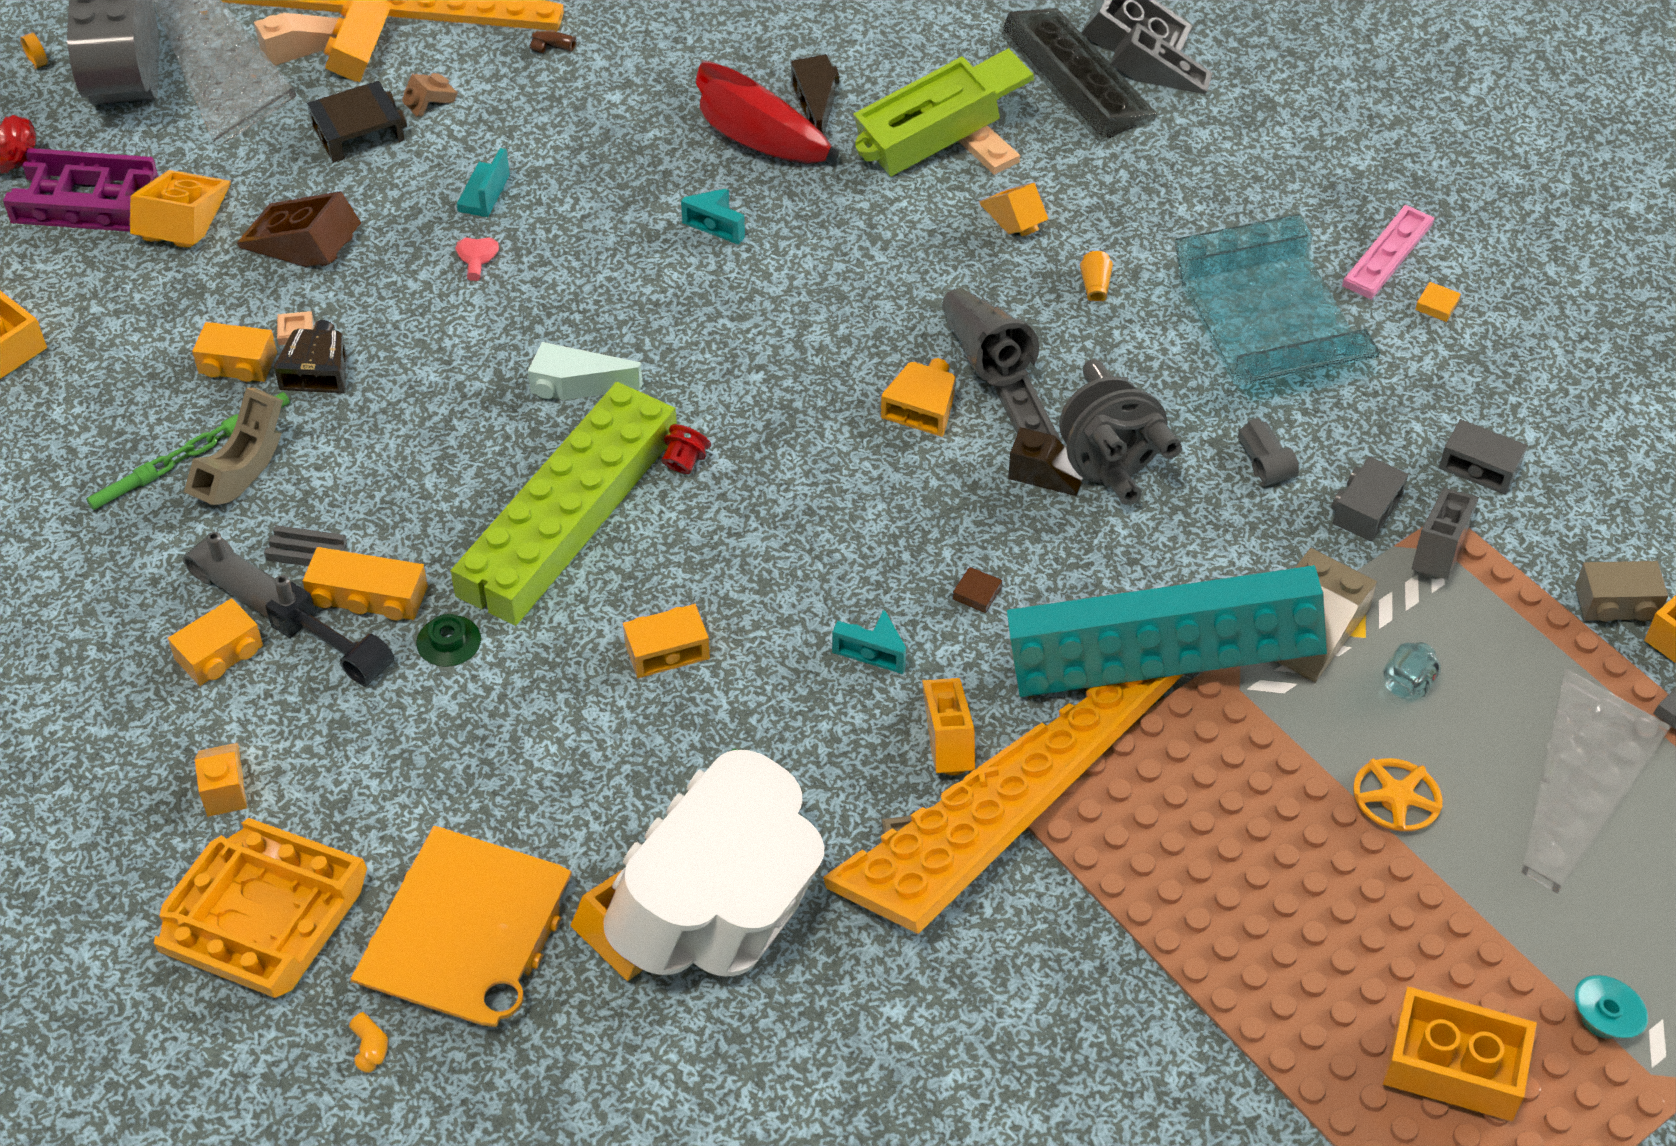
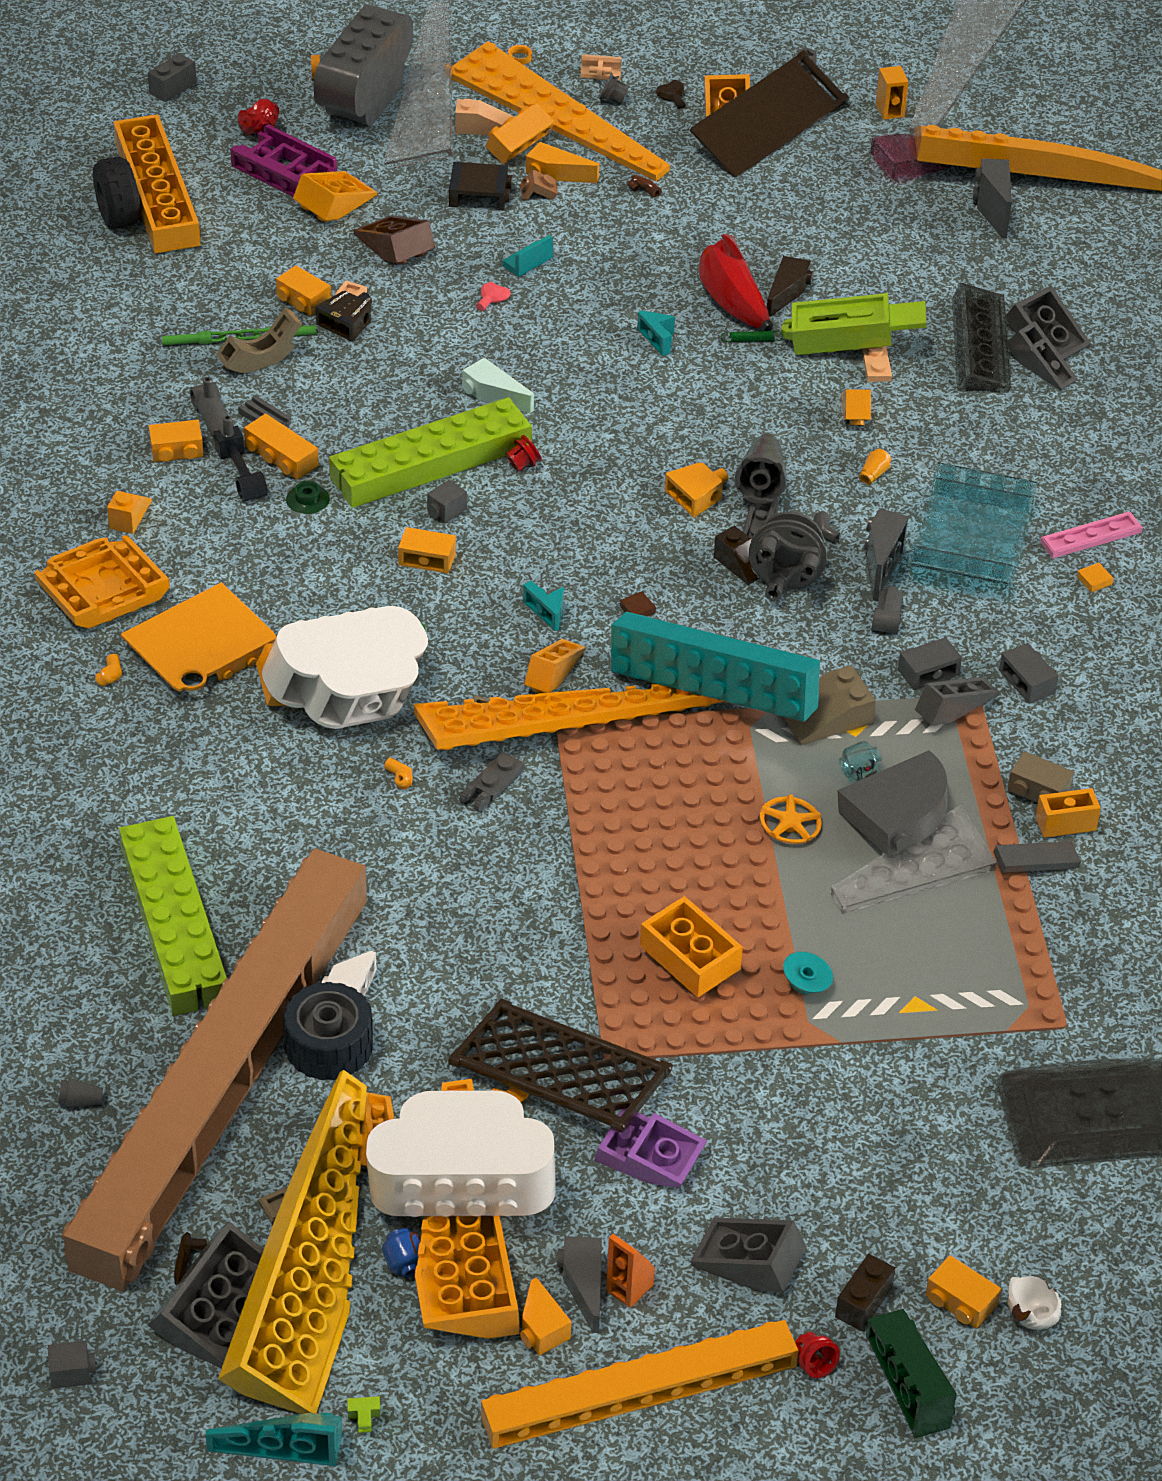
camera: 30 degrees right, 5 degrees down
(437, 54) = (561, 164): none -> light orange slope
(638, 559) = (446, 501): none -> dark grey brick
(824, 174) = (751, 336): none -> green piece
(880, 987) = (403, 773): none -> light orange arm
(1001, 932) = (492, 780): none -> dark grey hinge
(1208, 379) = (884, 547): none -> dark grey slope
(1510, 706) = (898, 803): none -> dark grey brick

